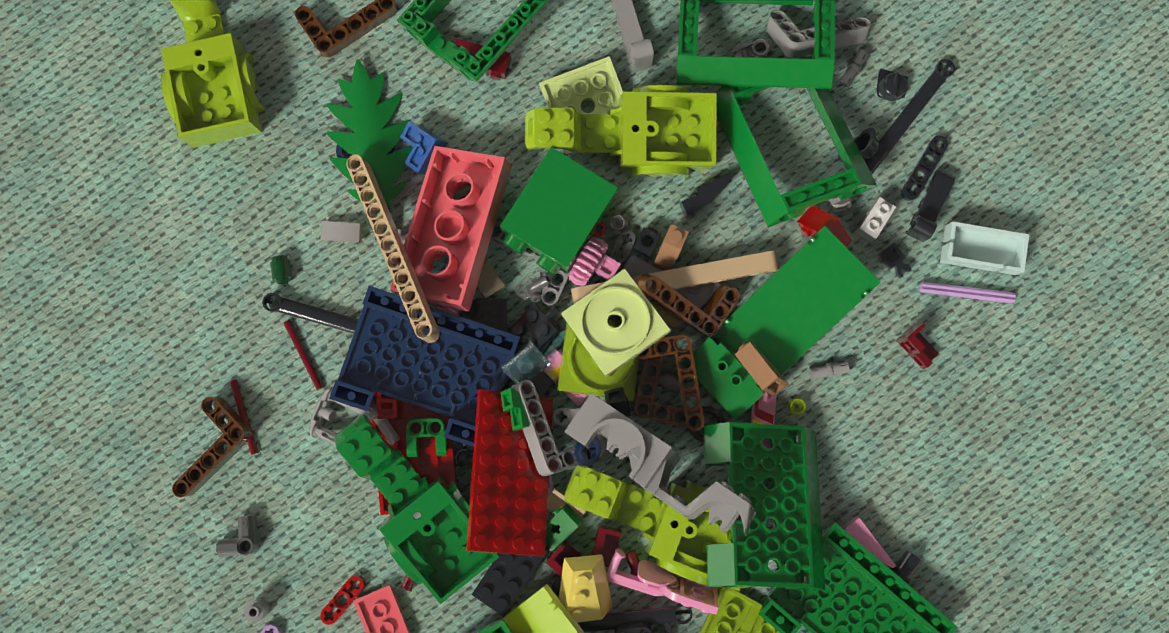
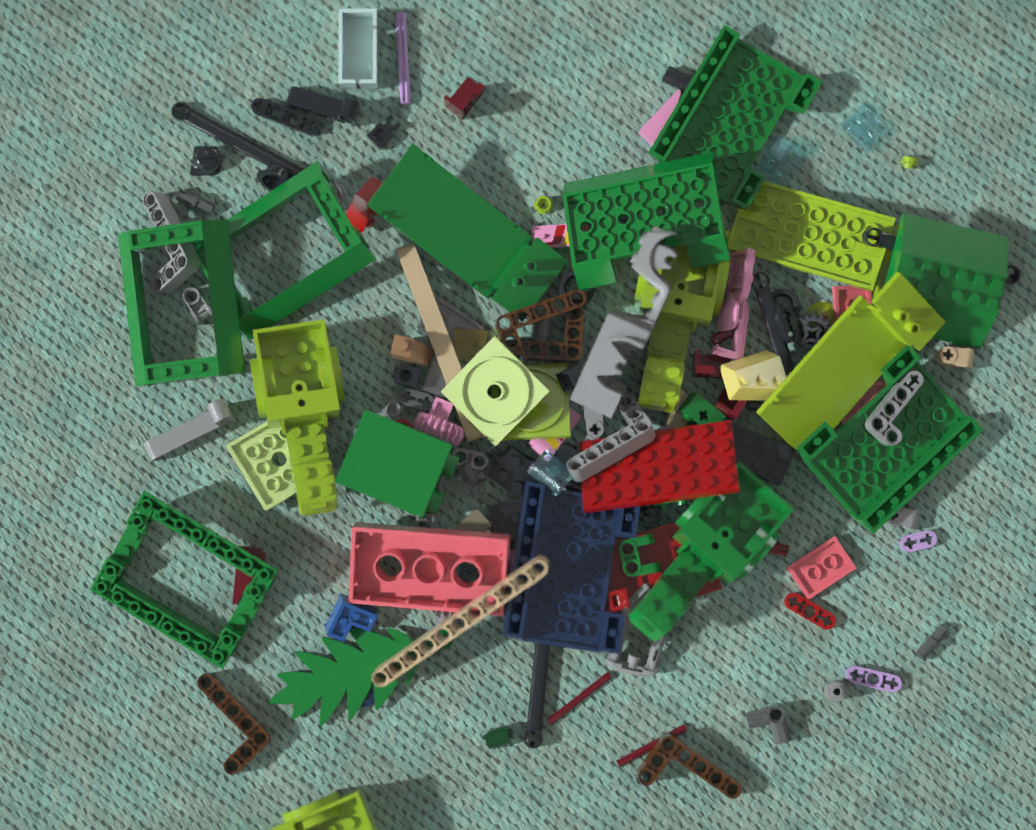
camera: 105 degrees left, 0 degrees up
(341, 231) = (449, 684): light grey slope -> none
(512, 402) = (590, 476): green slope -> none
(592, 453) = (628, 393): dark blue gear -> none
(686, 308) = (474, 310): reddish brown beam -> none
(704, 195) = (351, 326): black slope -> none
(761, 369) = (515, 244): medium nougat slope -> none
(829, 370) = (503, 179): light grey pin -> none
(875, 219) = (346, 157): white brick -> none

